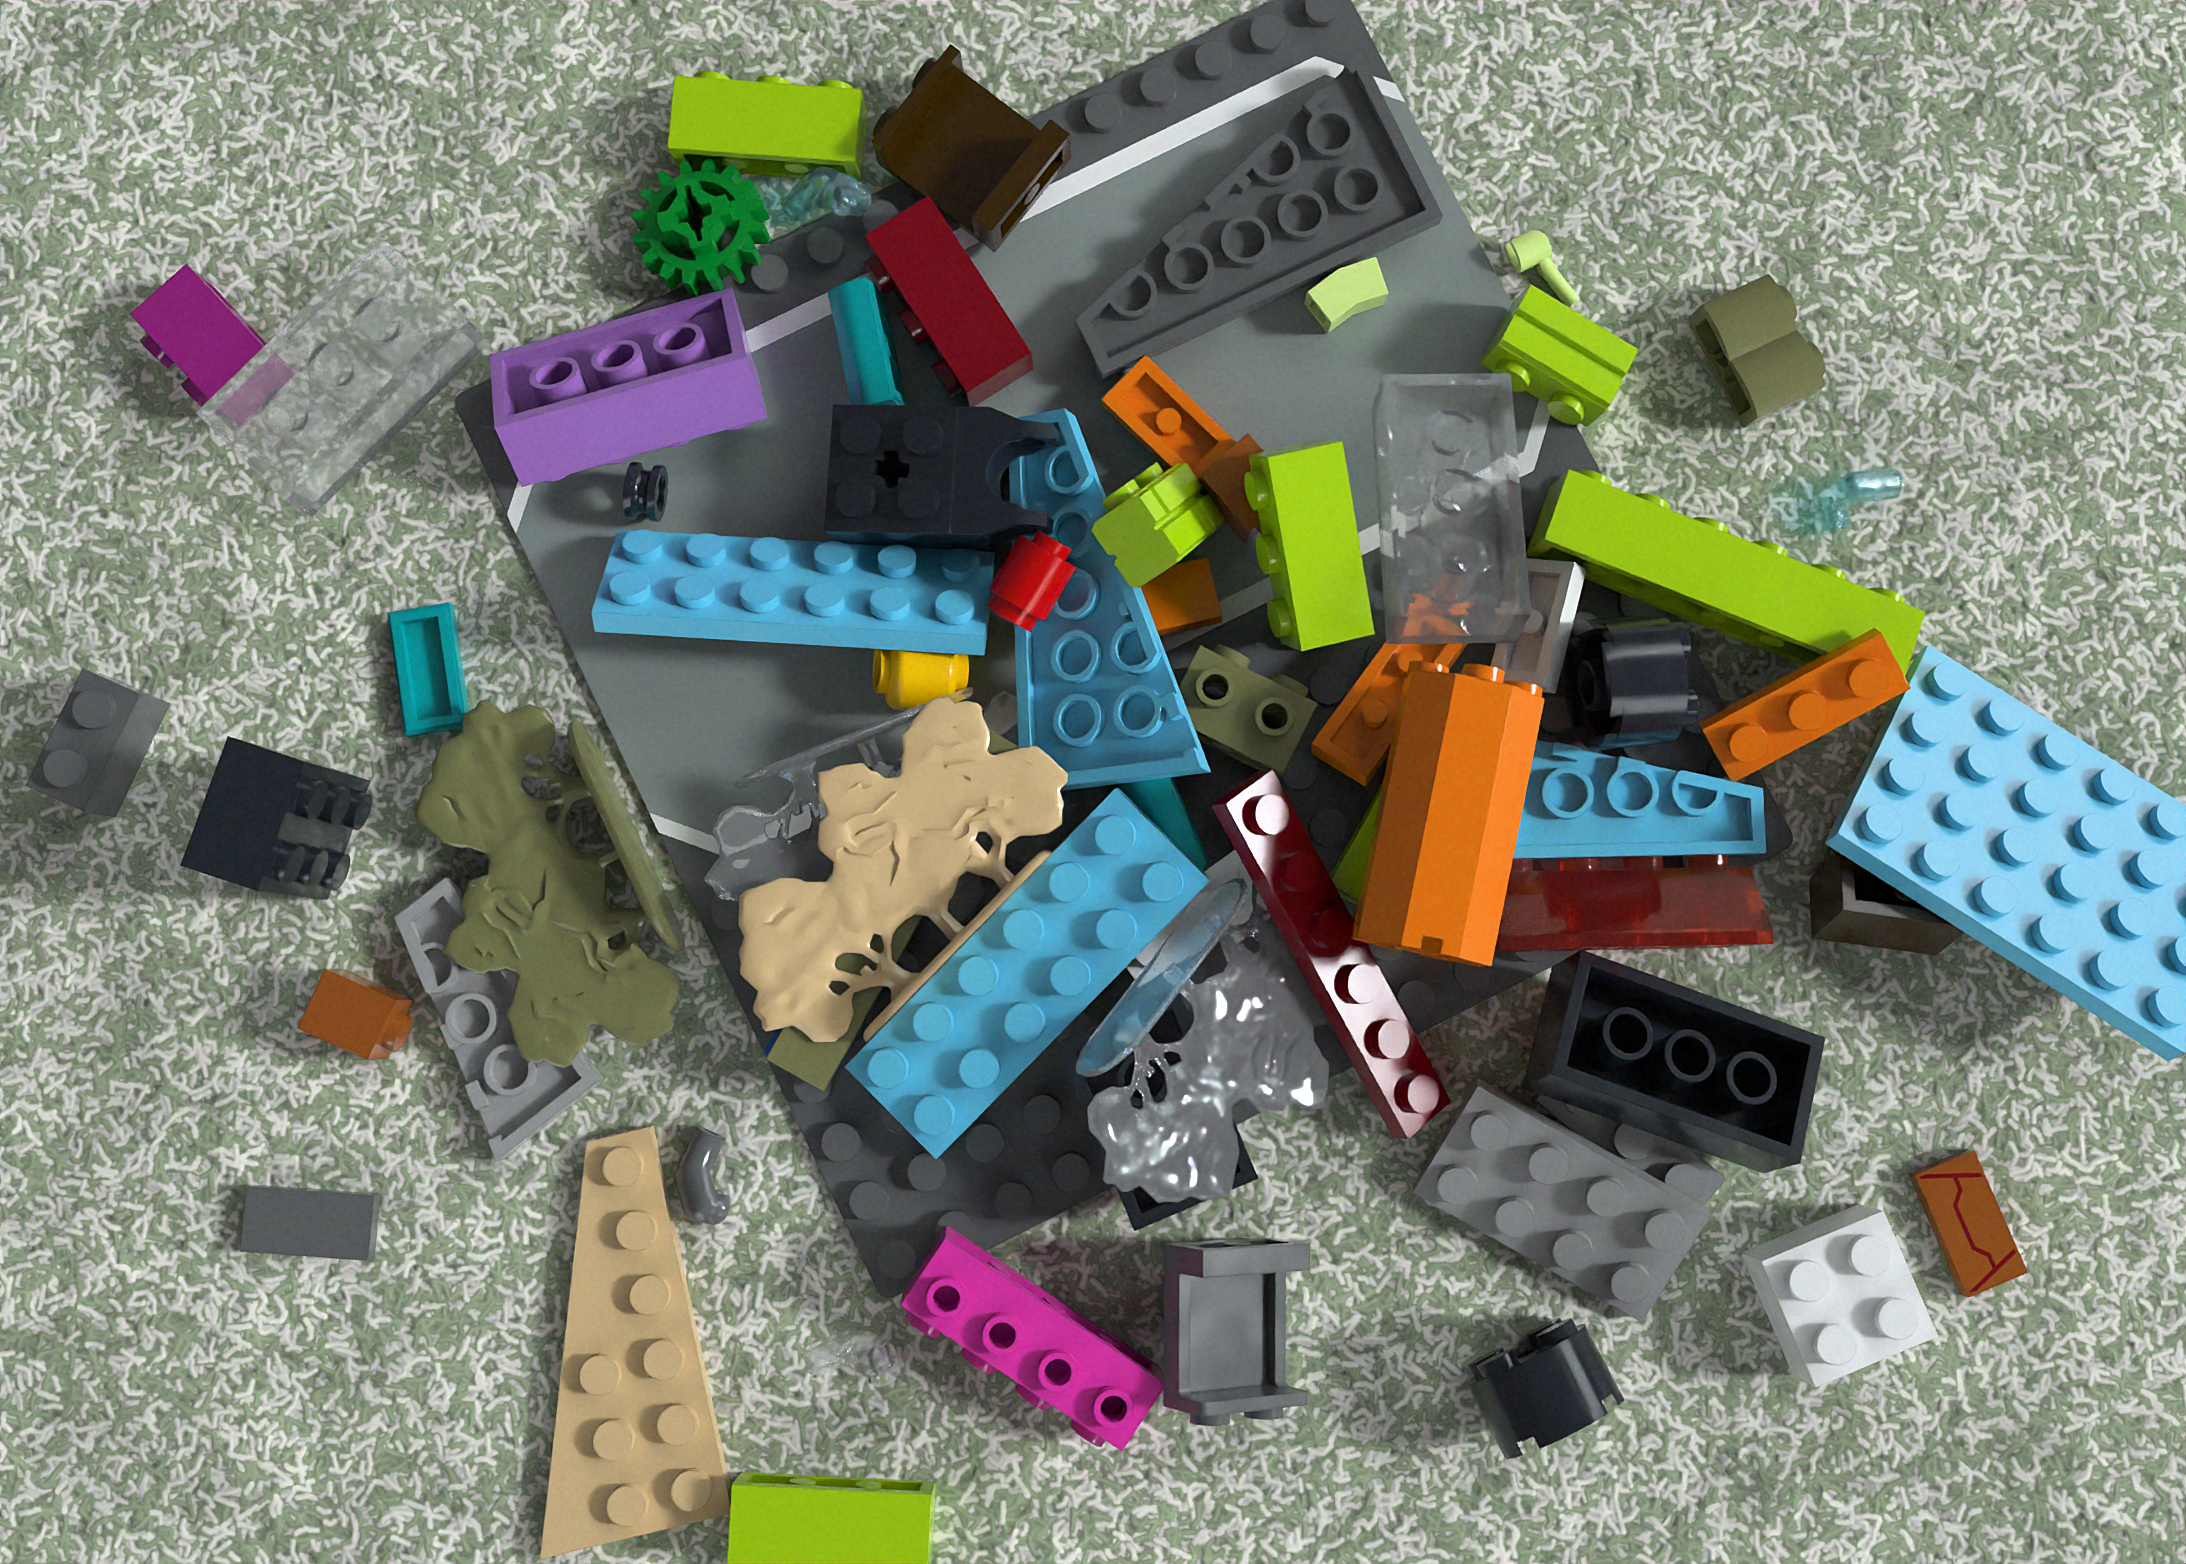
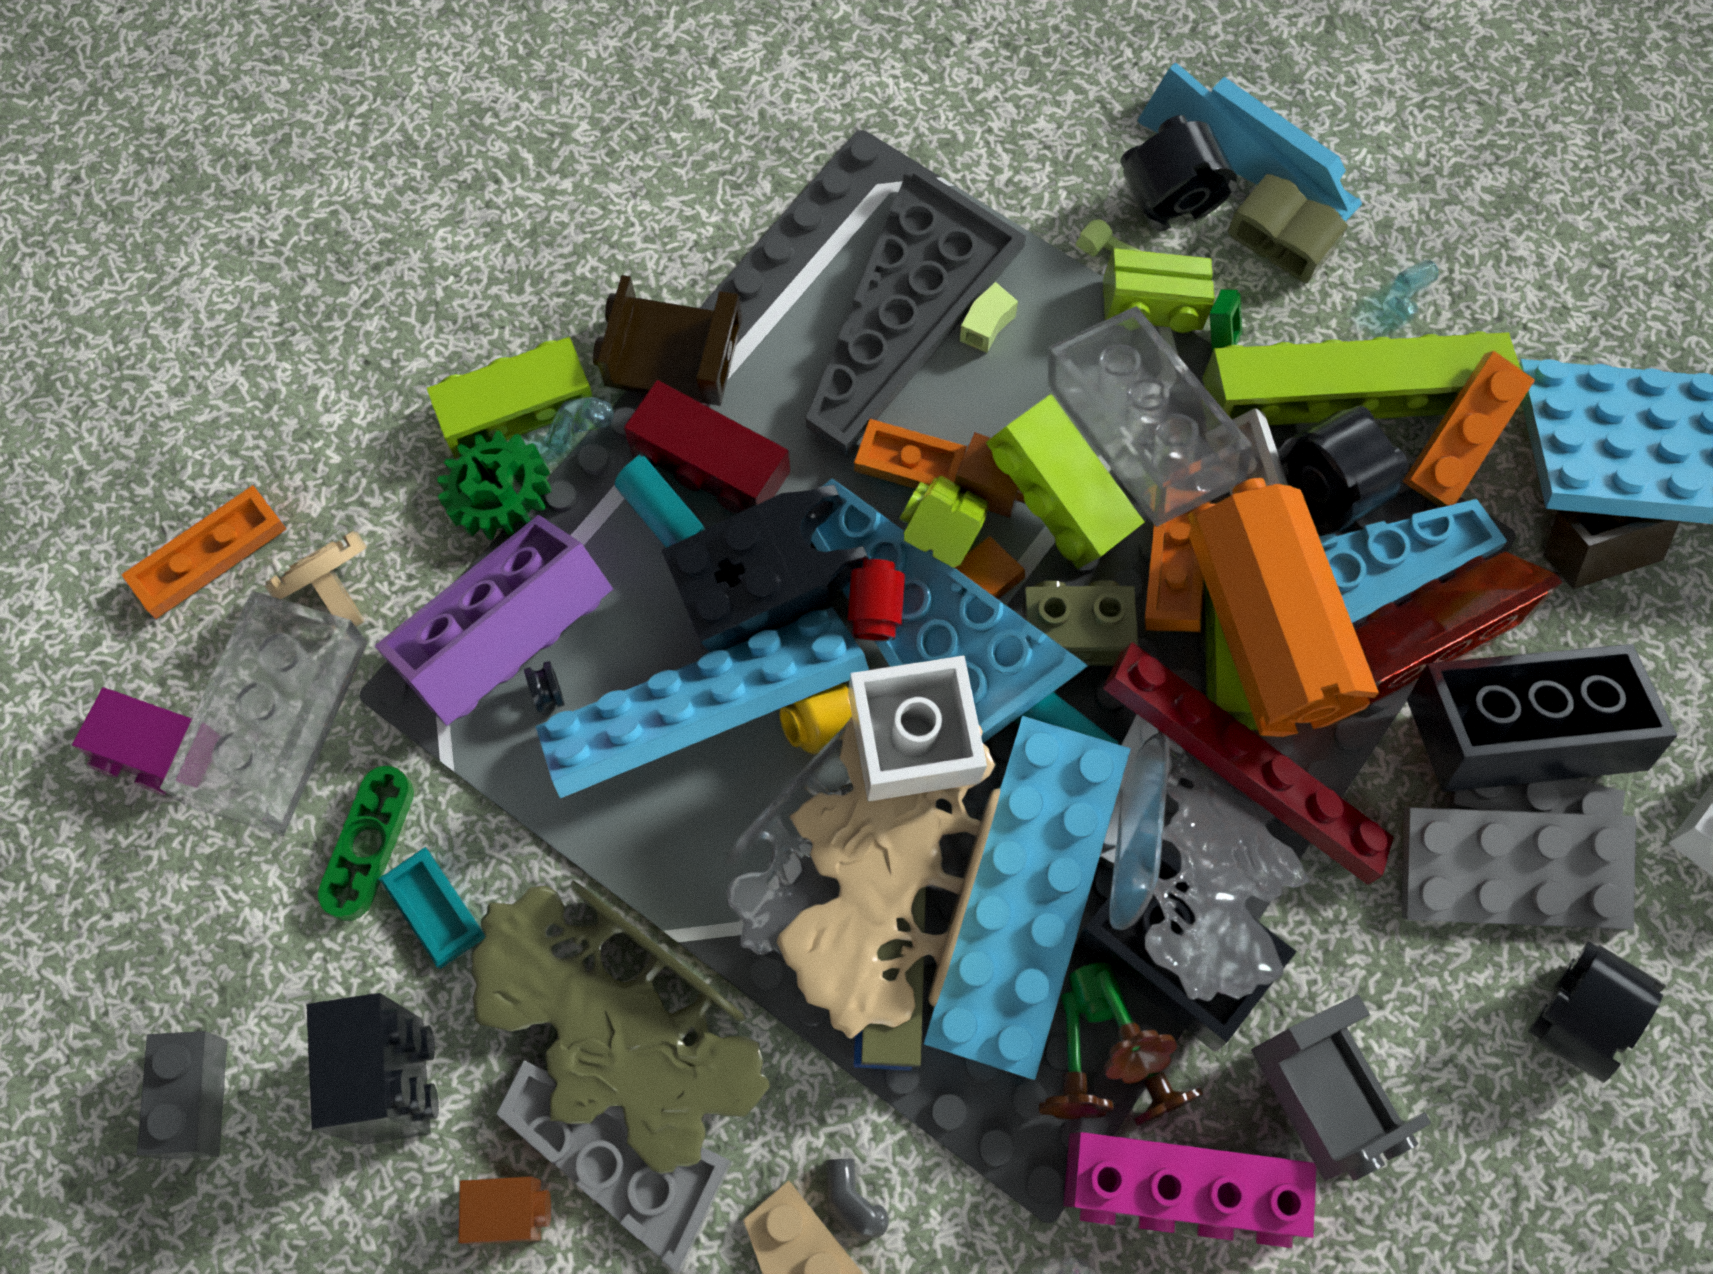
camera: 30 degrees left, 15 degrees down
(360, 151) = (203, 552): none -> orange plate
(365, 566) = (356, 822): none -> green beam
(467, 241) = (318, 570): none -> tan tile
(983, 752) = (916, 728): none -> white brick
(1048, 1113) = (1132, 1059): none -> reddish brown plant
(1612, 435) = (1226, 319): none -> green tile
(1663, 222) = (1178, 172): none -> black brick
(1777, 215) = (1253, 137): none -> medium azure wedge

